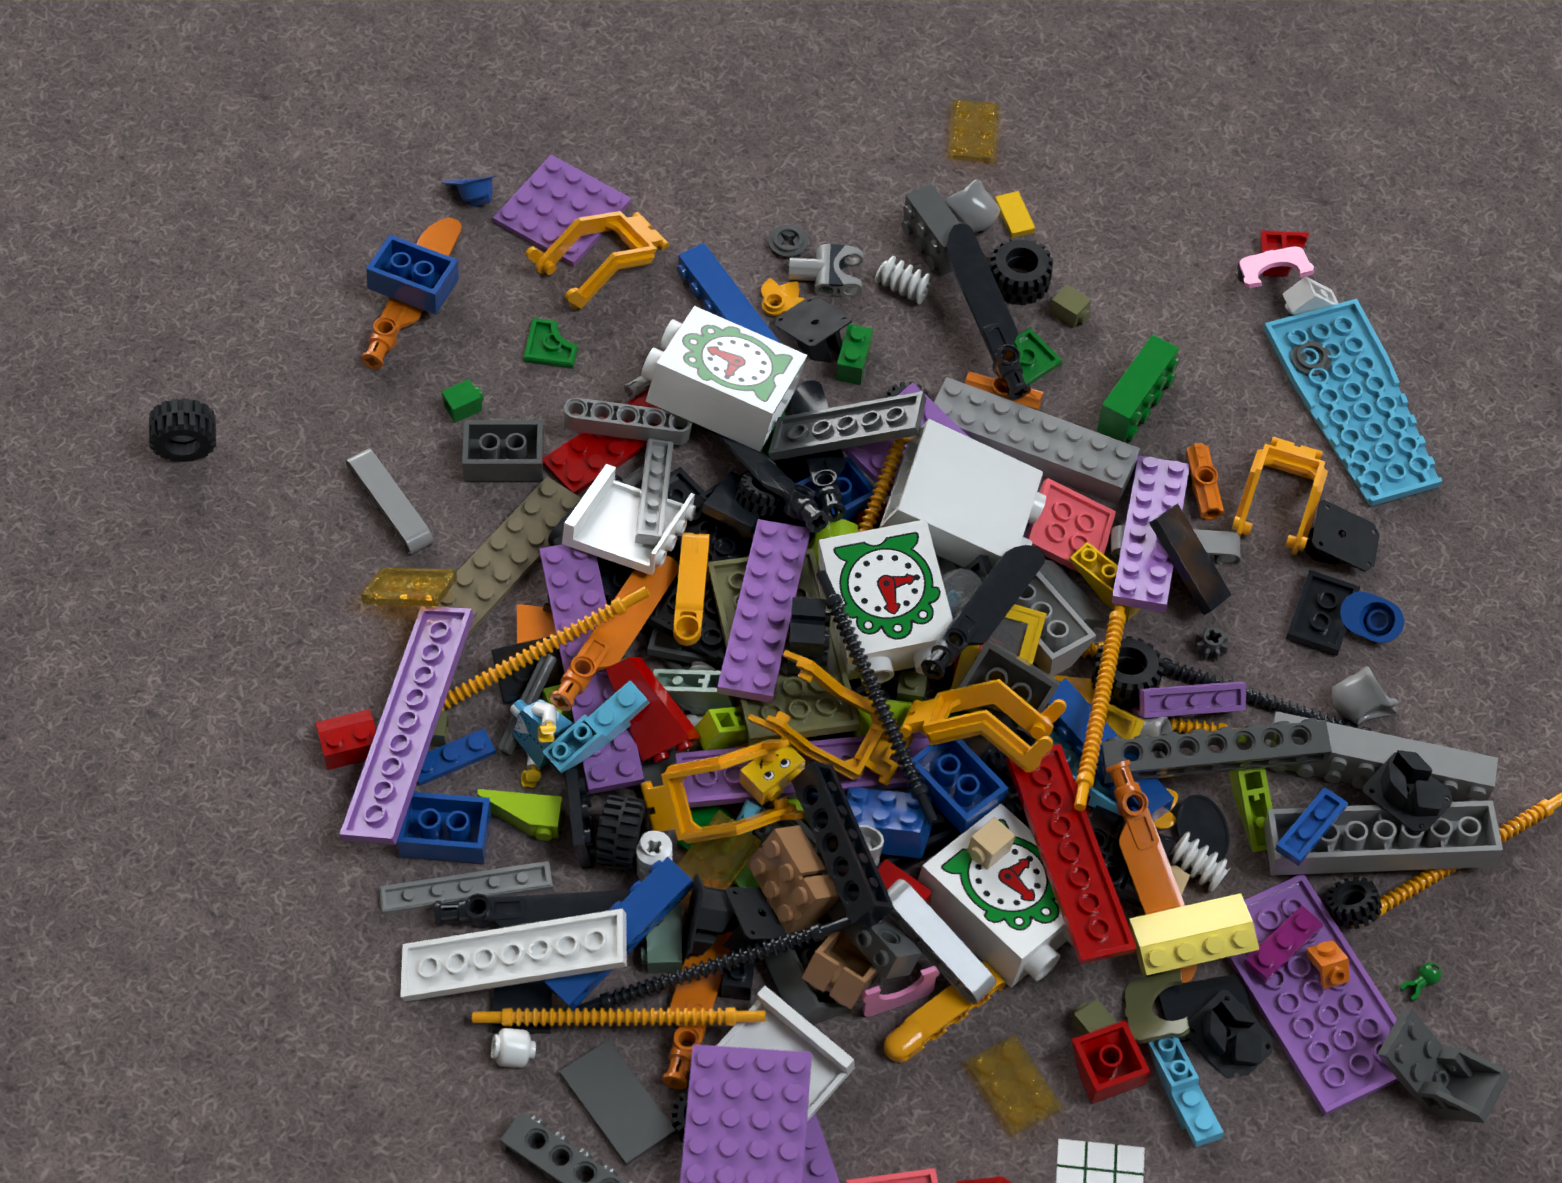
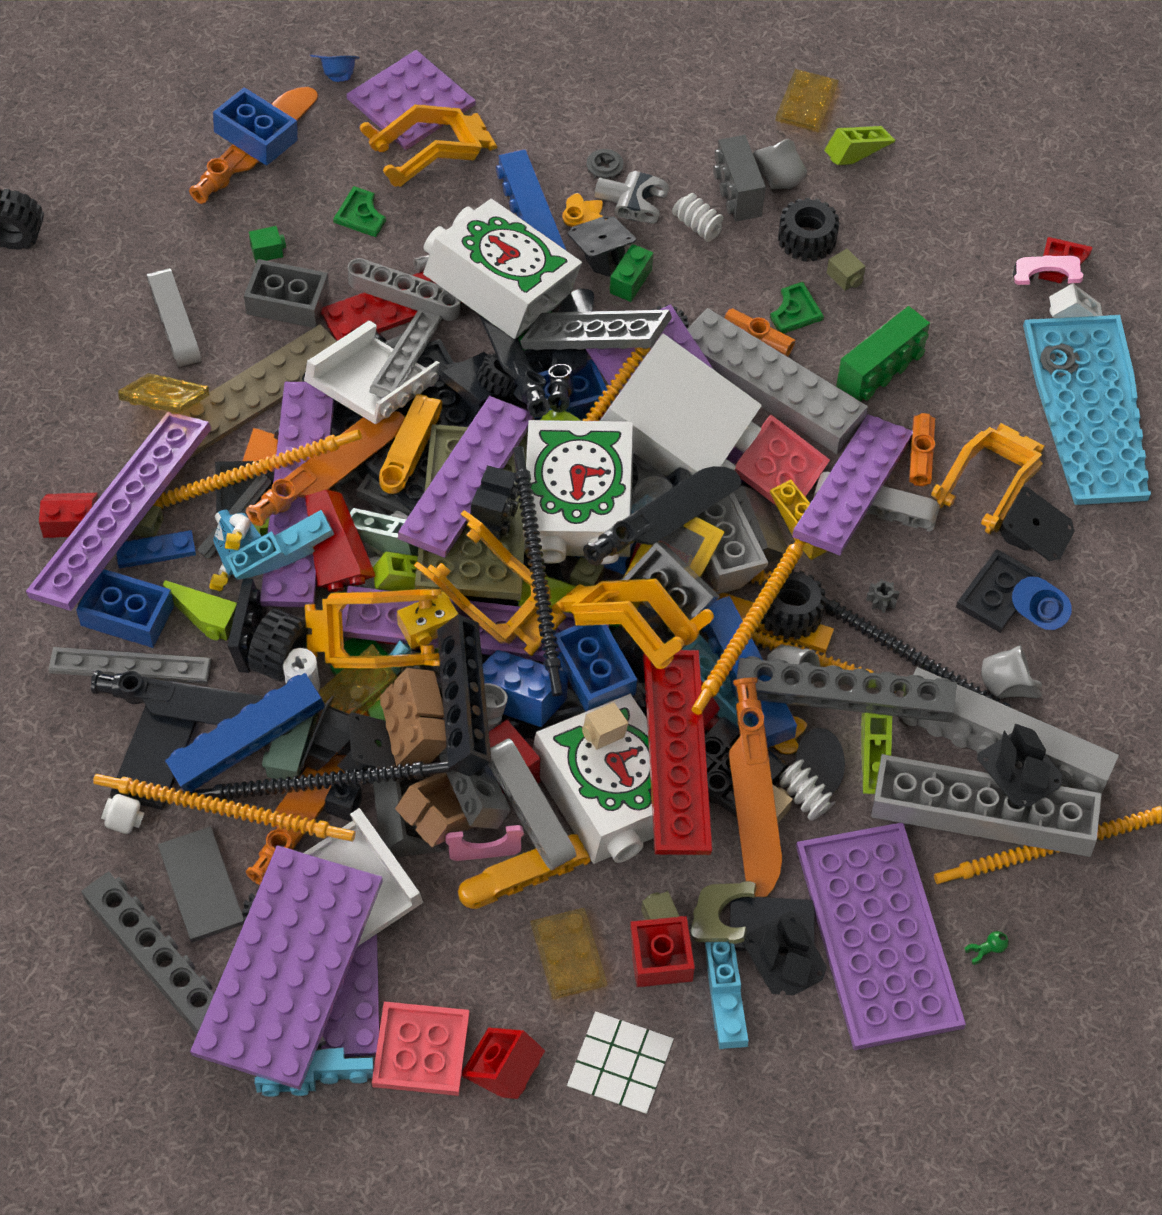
camera: 15 degrees right, 0 degrees up
(514, 955) = (146, 731): white plate -> none
(987, 307) = (762, 252): black piece -> none
(1015, 214) = (821, 179): yellow tile -> none
(1039, 168) = (856, 143): none -> lime slope
(1123, 723) = (769, 645): yellow tile -> none
(1190, 559) = (881, 513): black tile -> none
(1191, 699) = (843, 640): medium lavender panel -> none
(1193, 934) = (776, 853): light yellow slope -> none
(1283, 944) = (862, 882): magenta plate -> none
(1311, 826) = (916, 778): blue plate -> none
(1330, 962) = (900, 910): orange bracket -> none
(1358, 913) = (942, 859): black tyre -> none
(1439, 1077) = (974, 1040): dark grey bracket -> none

